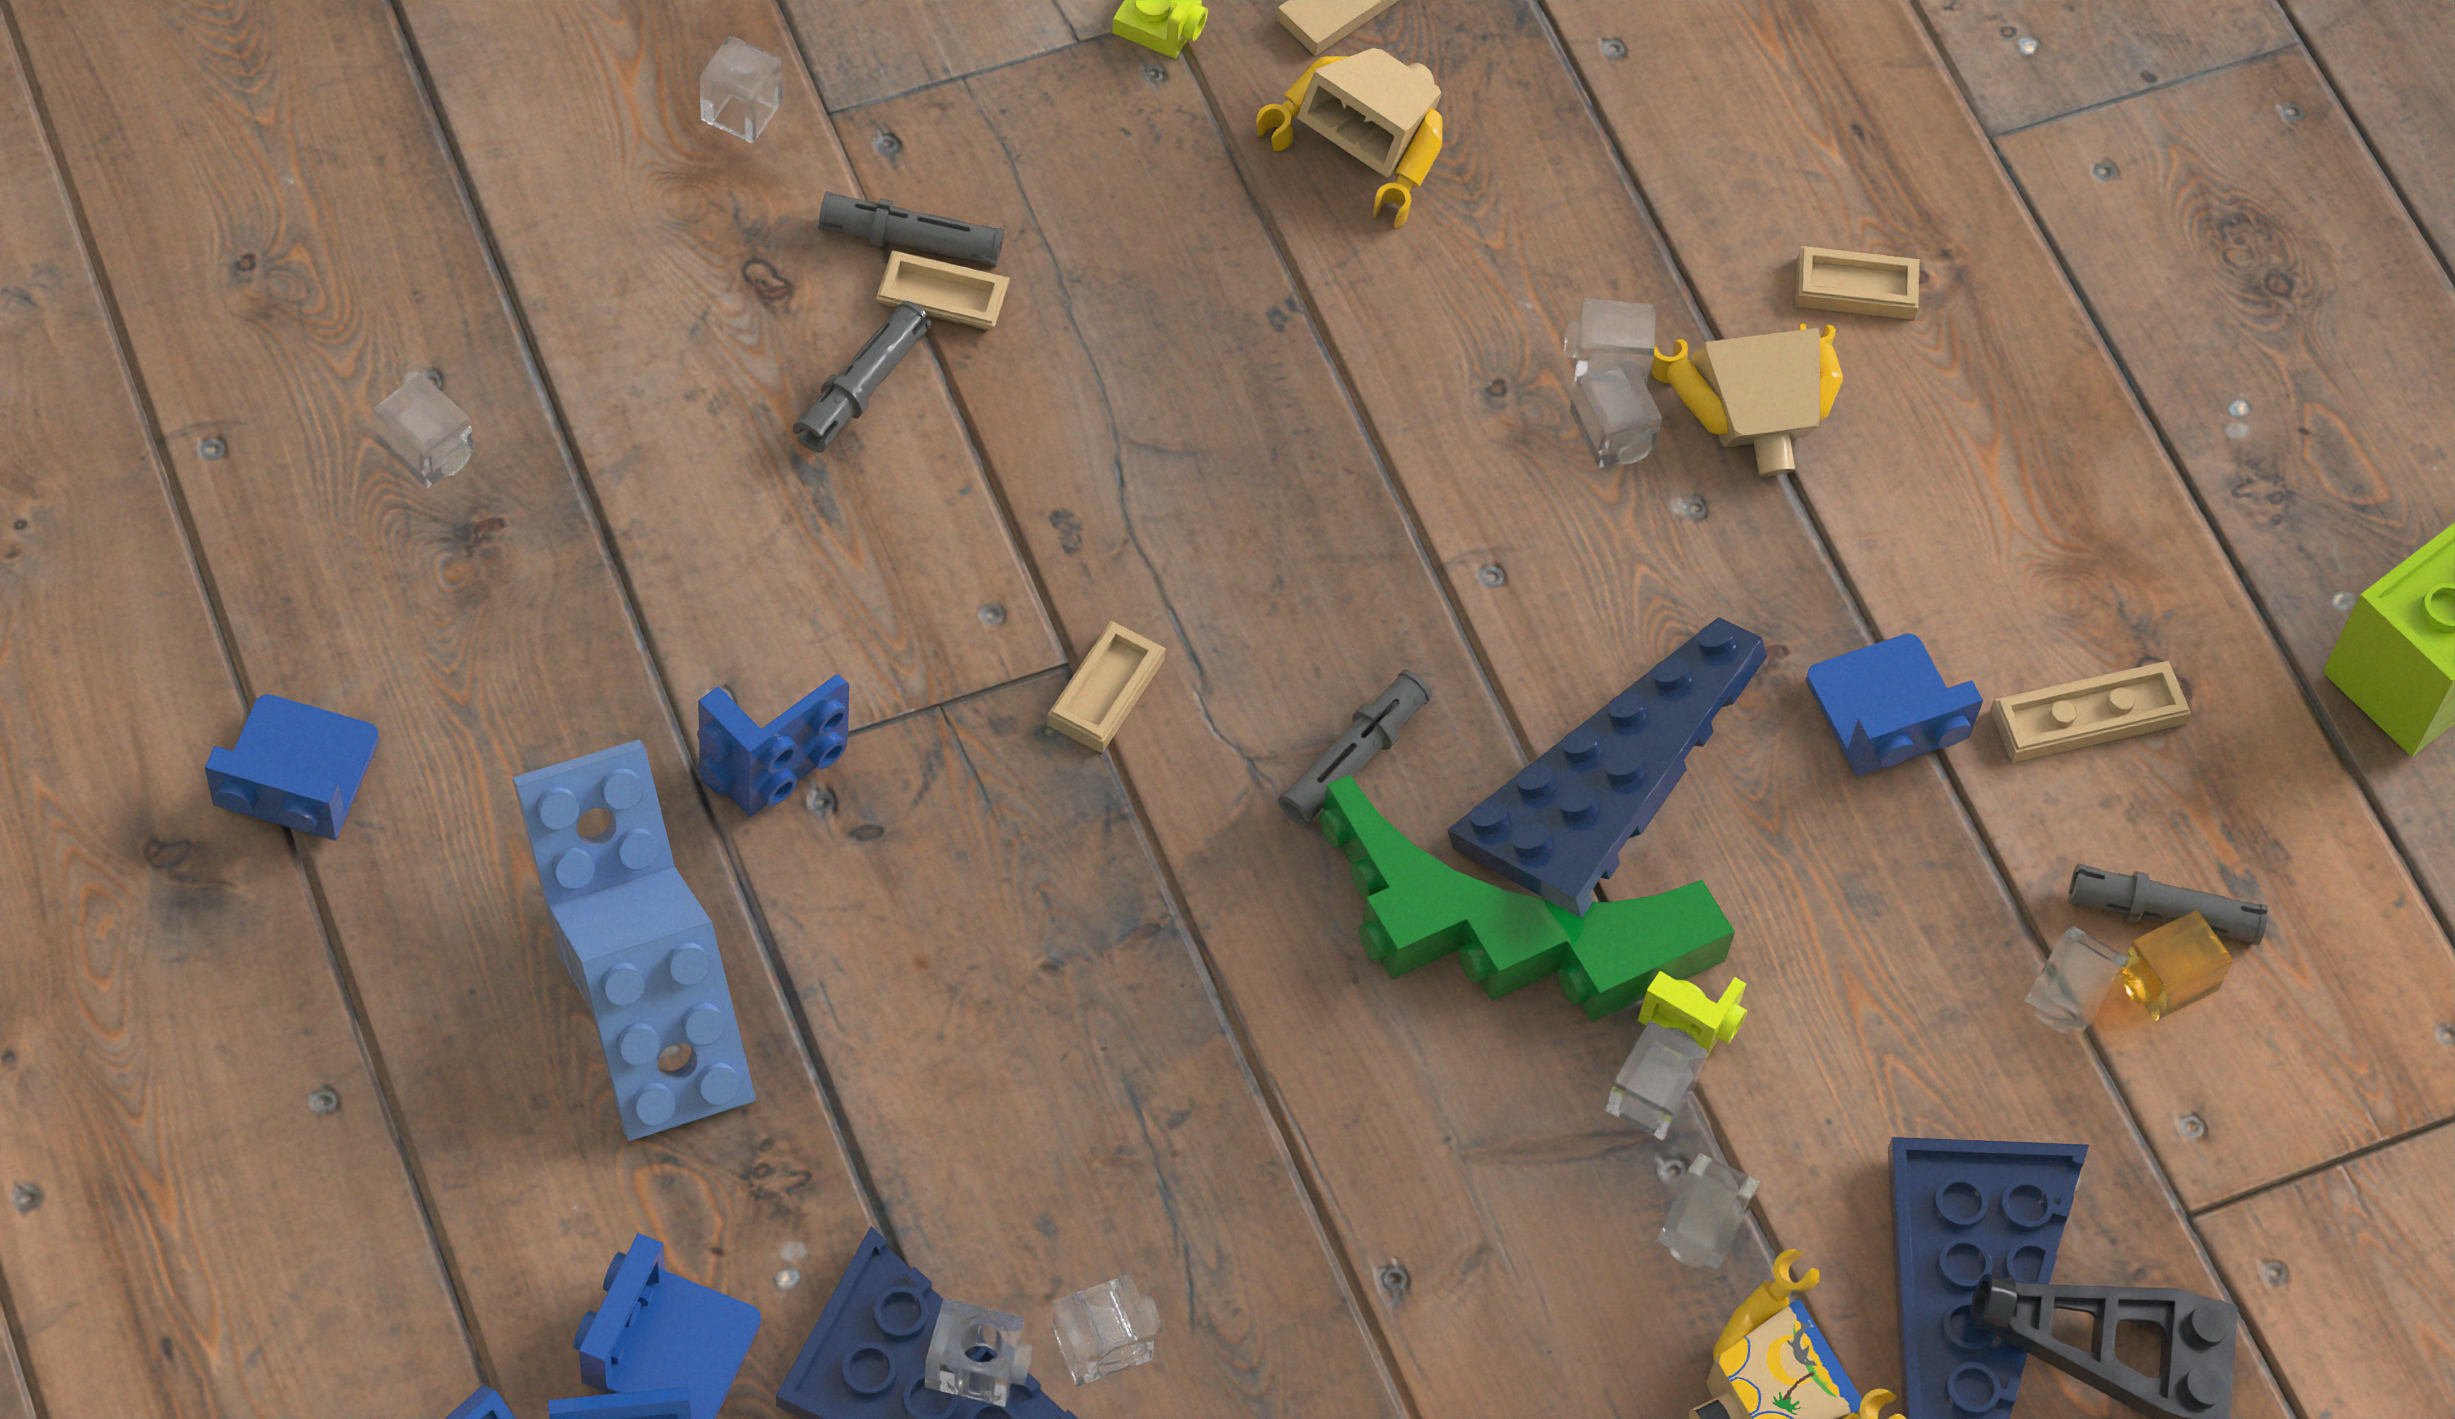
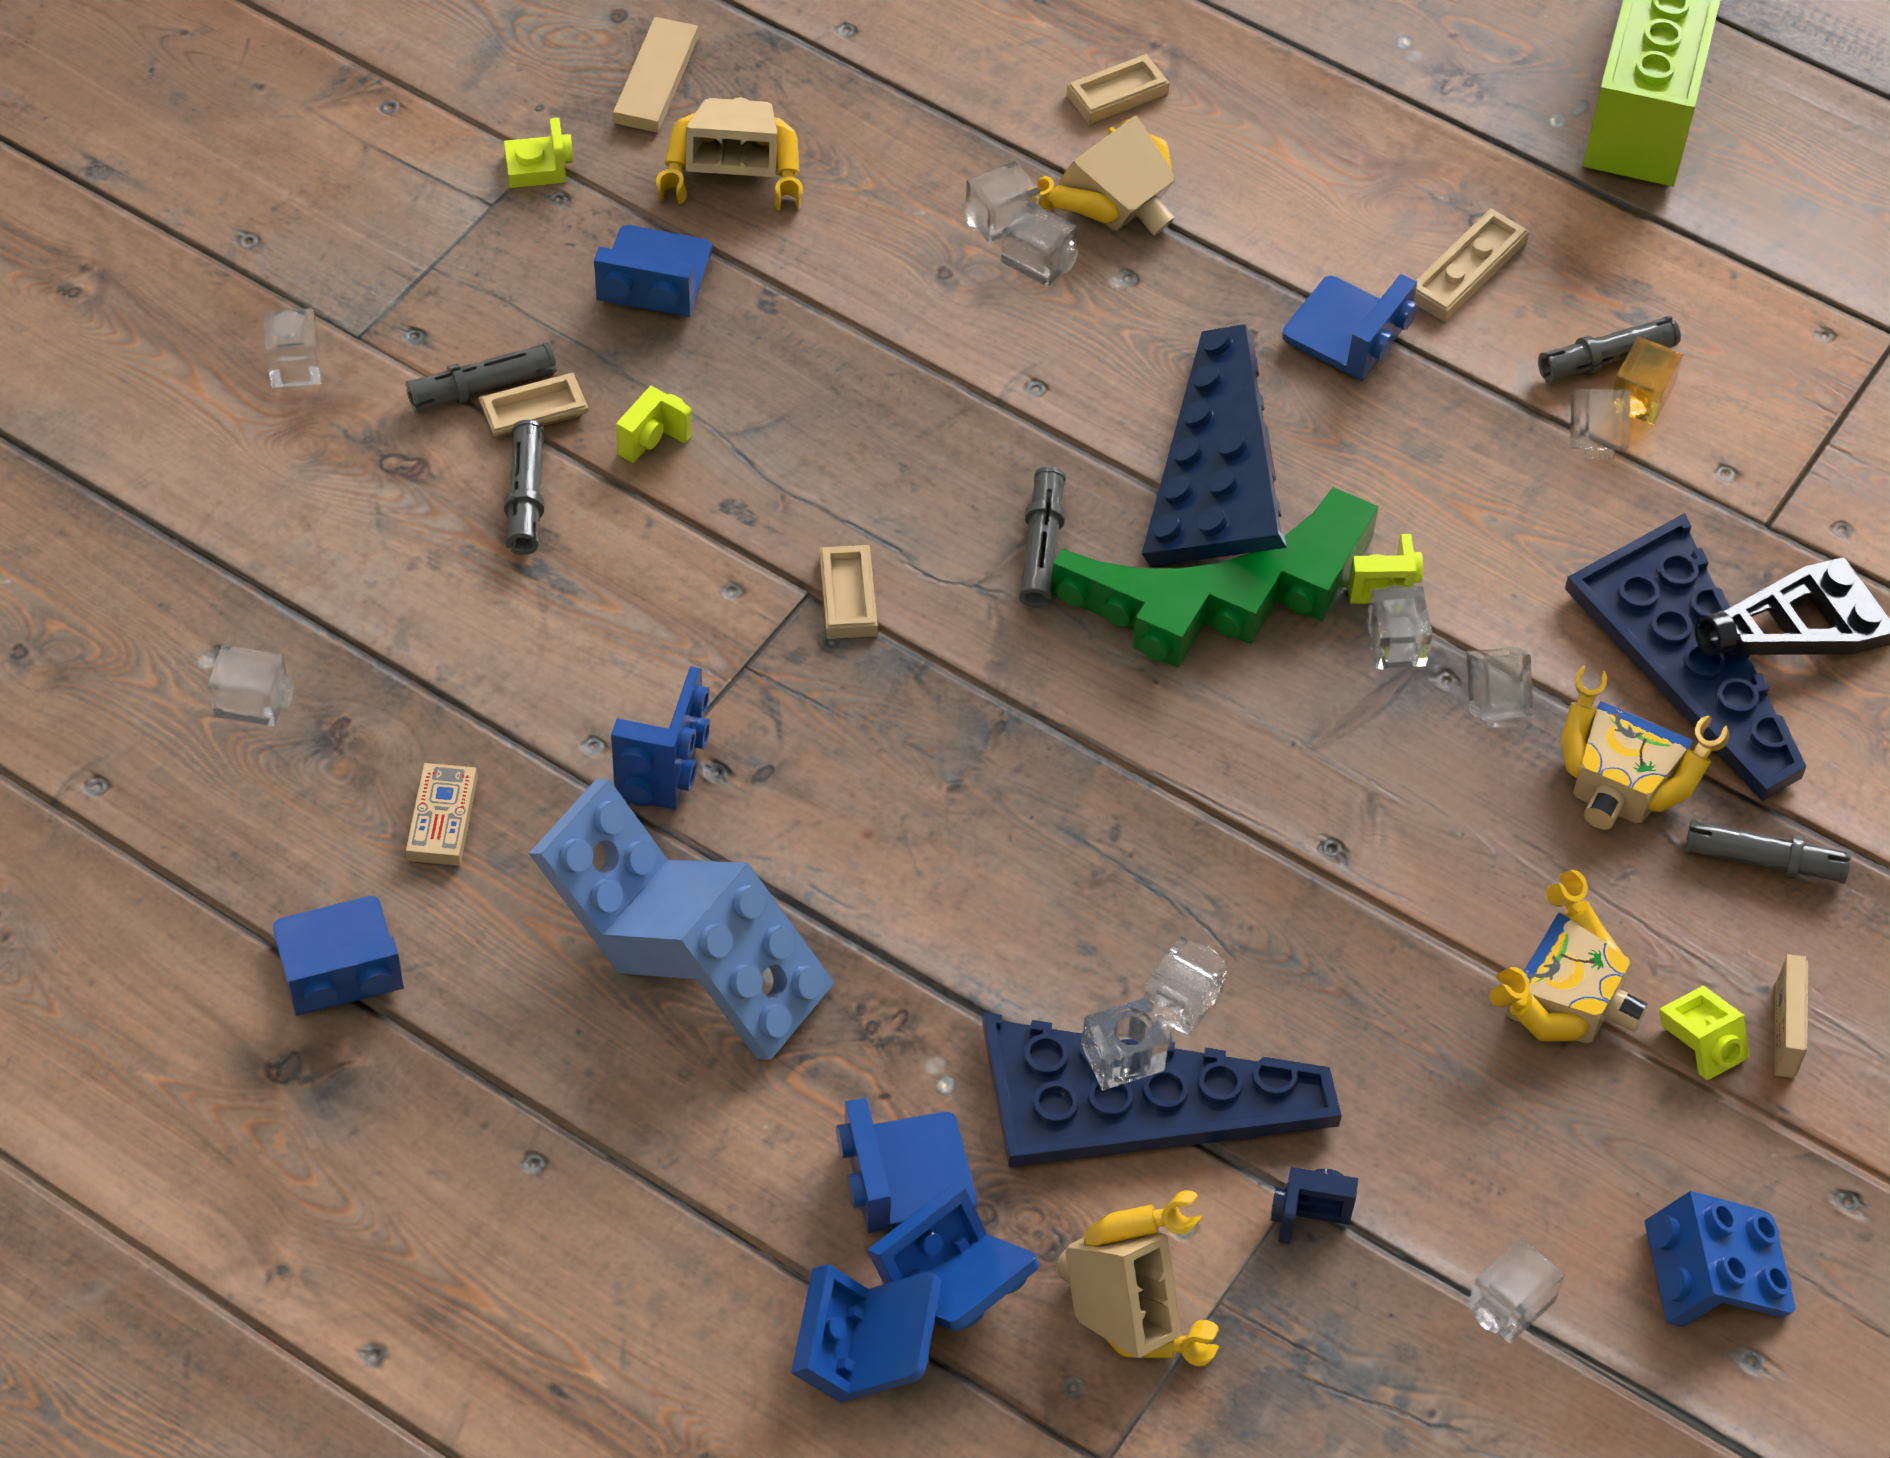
camera: 30 degrees left, 5 degrees down
(511, 680) = (442, 814): none -> tan tile
(1040, 374) = (650, 418): none -> neon yellow bracket
(1180, 209) = (652, 270): none -> blue bracket

